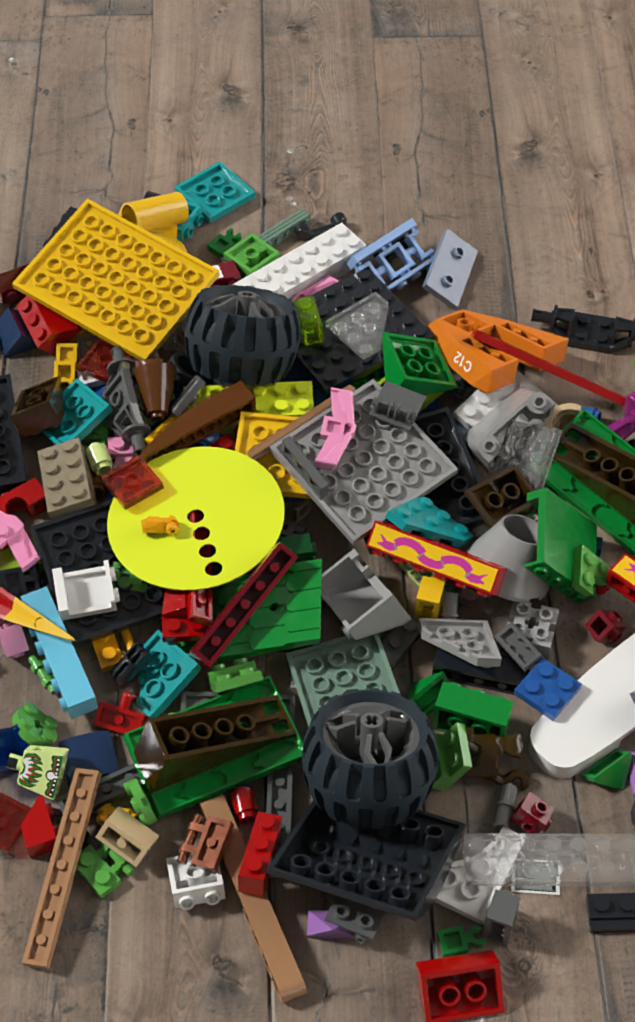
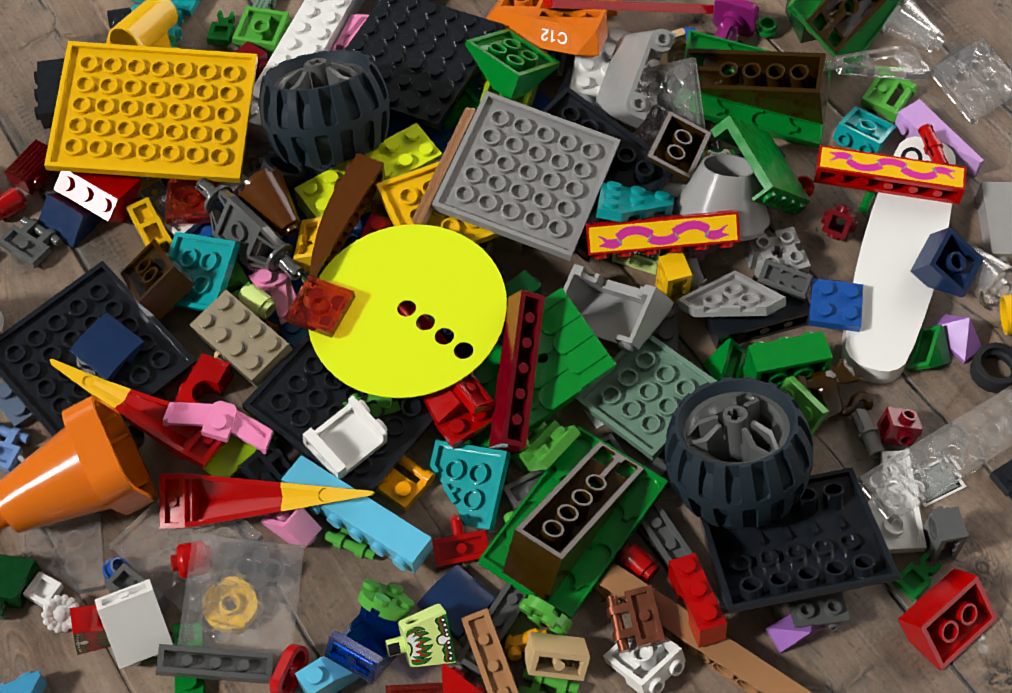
camera: 30 degrees left, 5 degrees up
(131, 665) = (435, 488): black arm -> none
(160, 525) = (378, 335): light orange arm -> none
(188, 395) = (310, 193): dark grey plate -> none
(305, 467) = (483, 207): dark grey plate -> none
(309, 320) = (384, 62): clear neon green brick -> none
(337, 429) = (488, 155): bright pink plate -> none
(361, 325) = (430, 45): clear plate -> none
(397, 405) = (528, 106): dark grey hinge -> none
(588, 570) = (798, 178): bright green plate -> none

